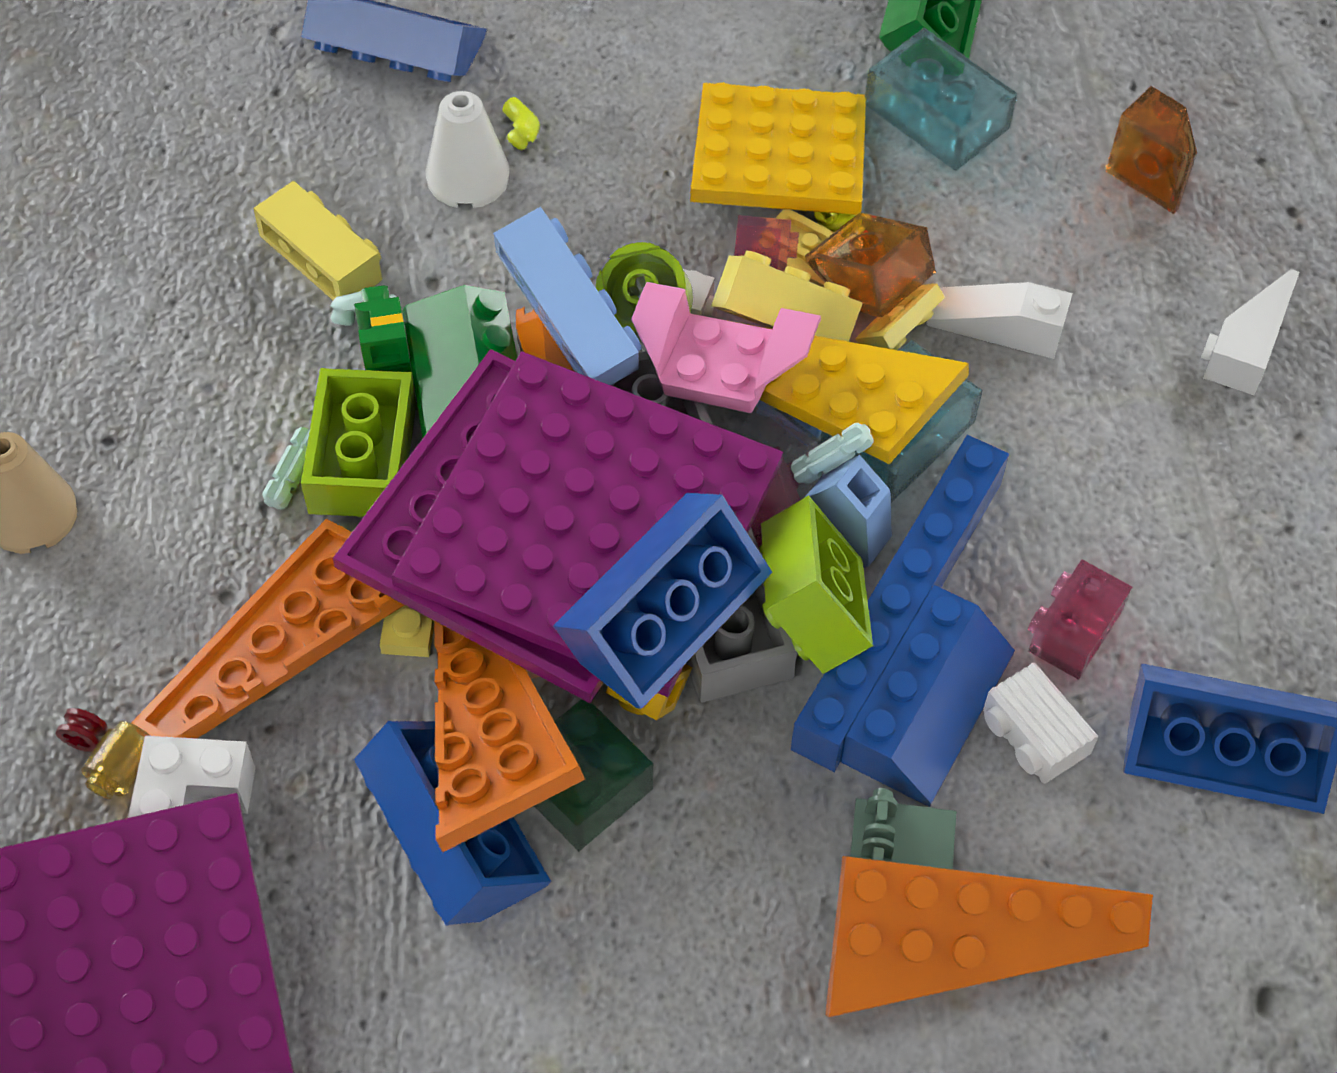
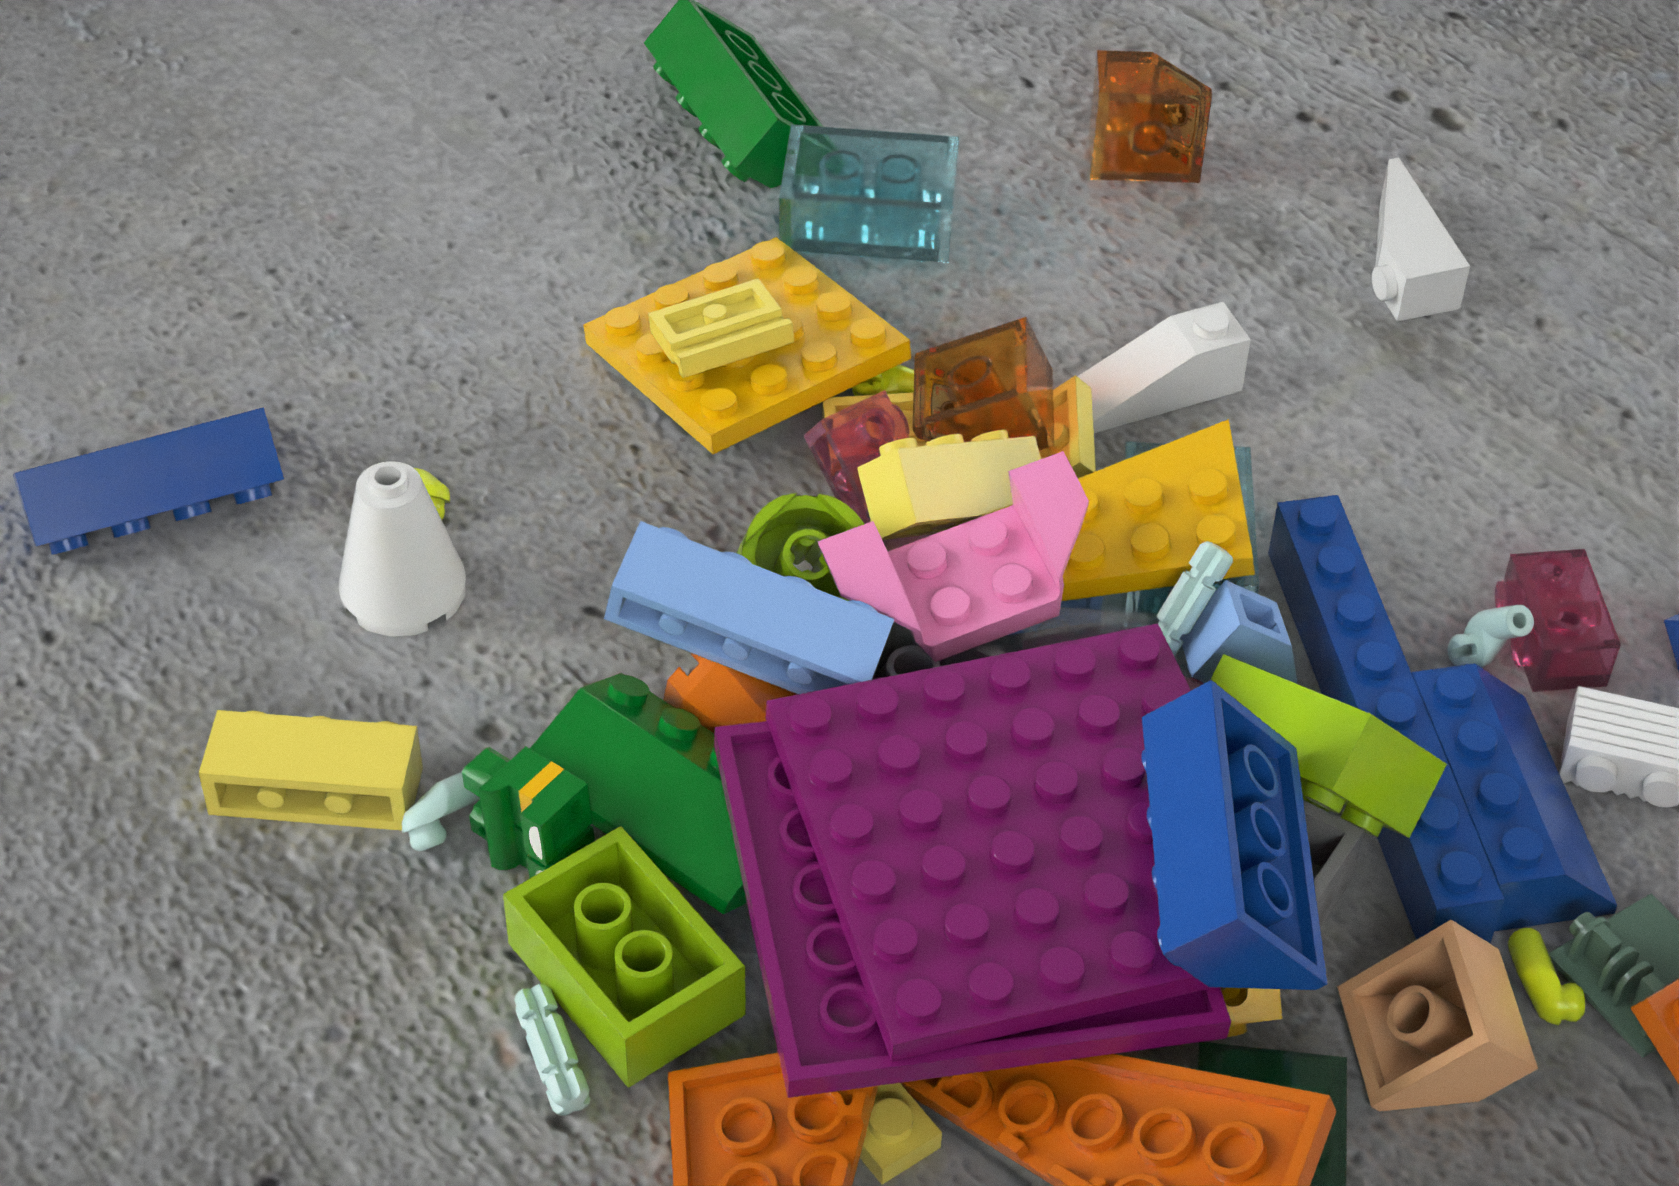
camera: 40 degrees left, 10 degrees down
(745, 787) = (1436, 1023): none -> light nougat slope
(753, 128) = (721, 327): none -> light yellow plate
(831, 806) = (1540, 980): none -> neon yellow arm
(1019, 602) = (1488, 633): none -> light aqua arm

